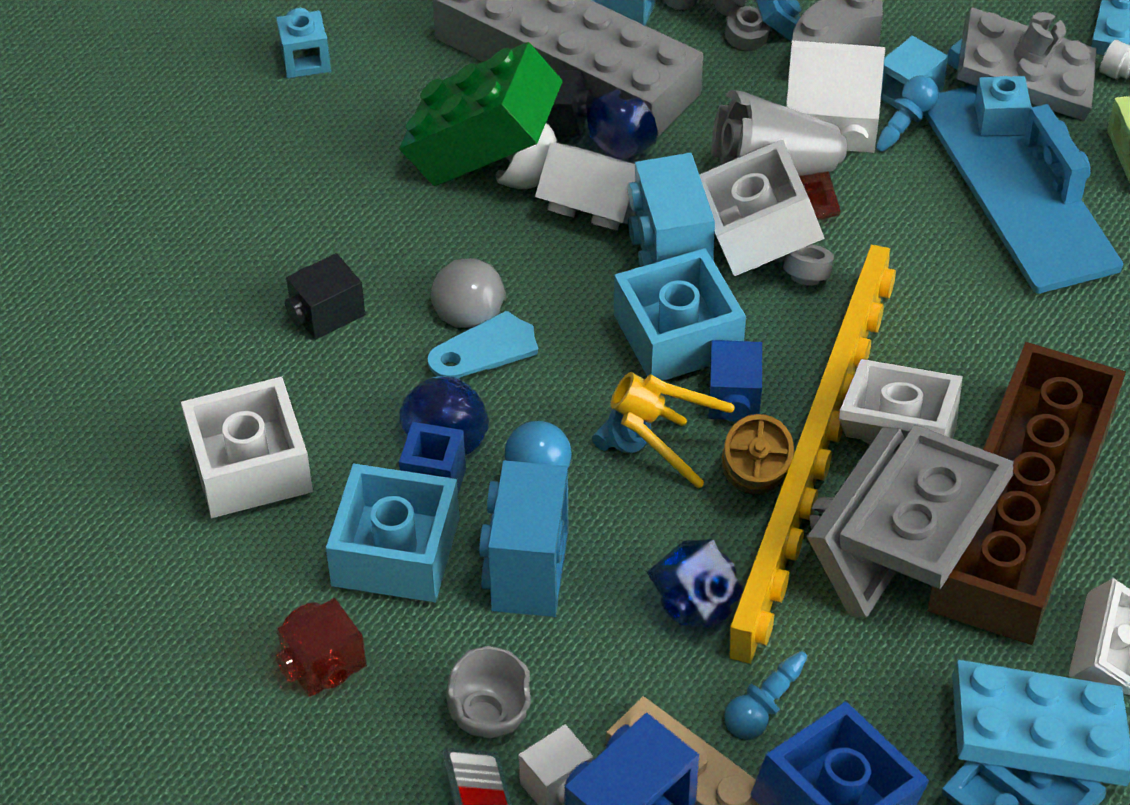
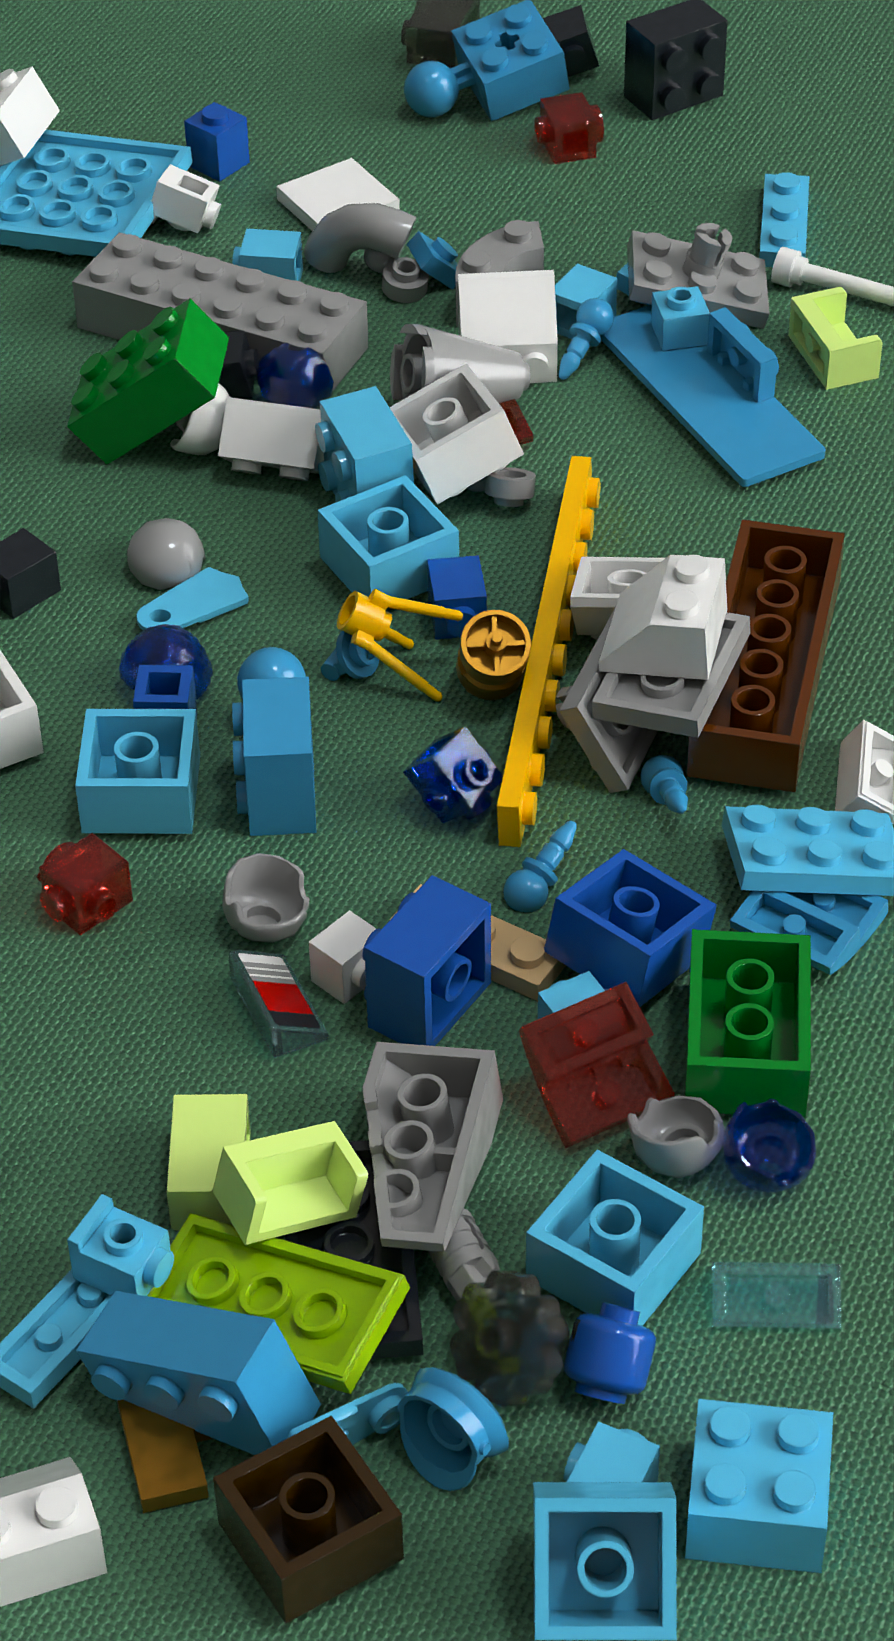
camera: 10 degrees left, 5 degrees down
(905, 617) = (666, 782): none -> dark azure bar
(930, 459) = (669, 620): none -> white slope

